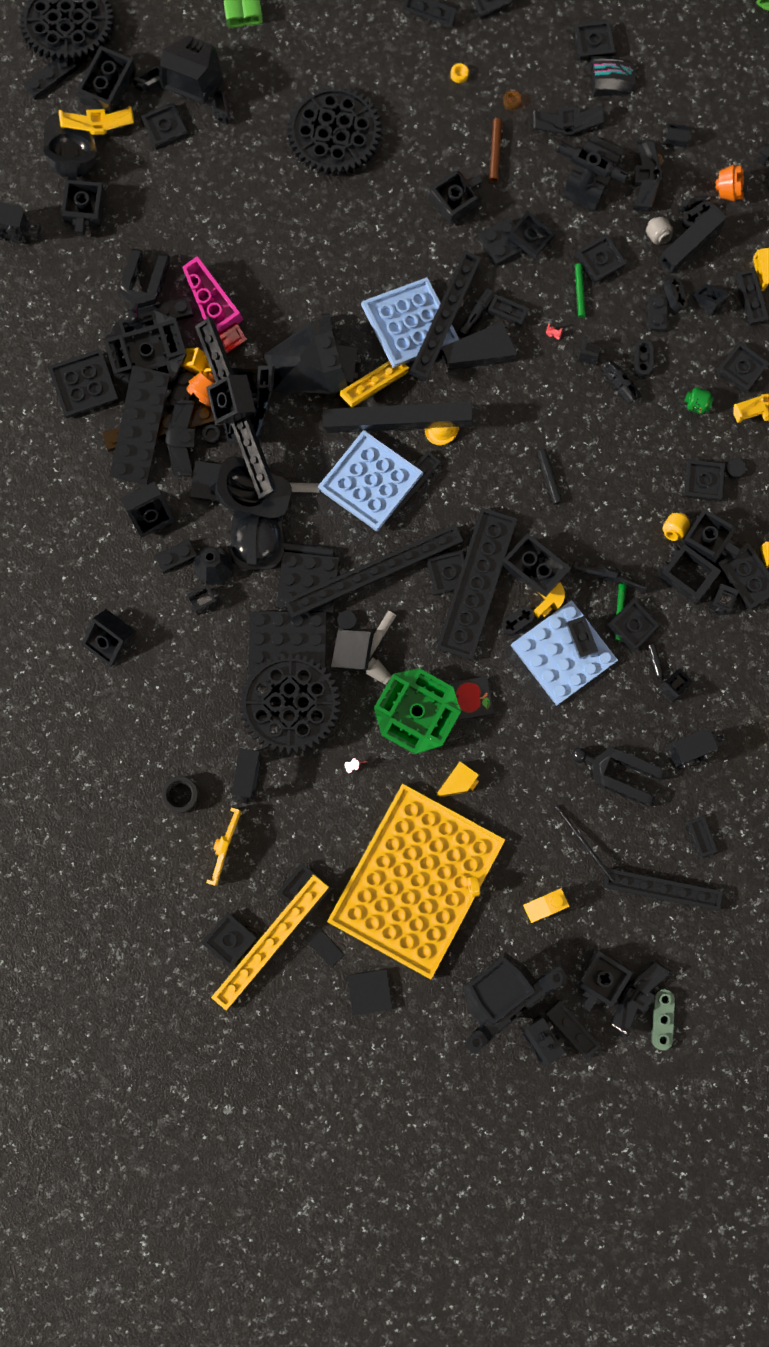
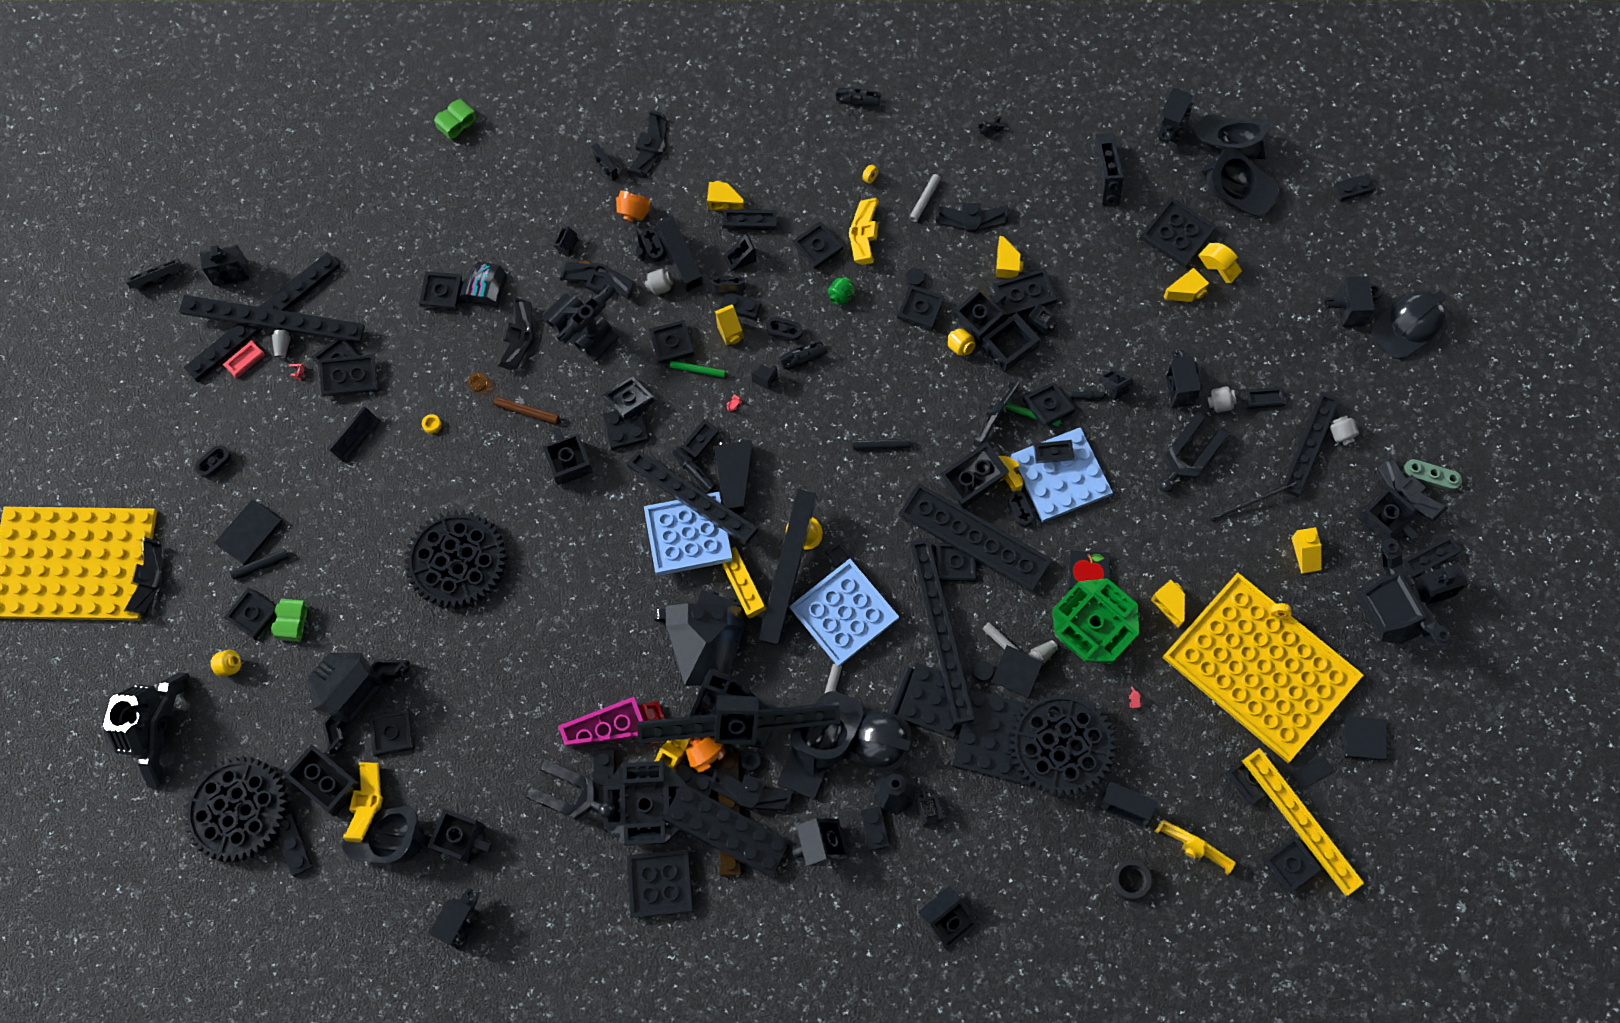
camera: 70 degrees left, 10 degrees down
(630, 304) = (729, 325): none -> yellow slope
(686, 793) = (1222, 399): none -> light grey head
(686, 921) = (1344, 430): none -> light grey head

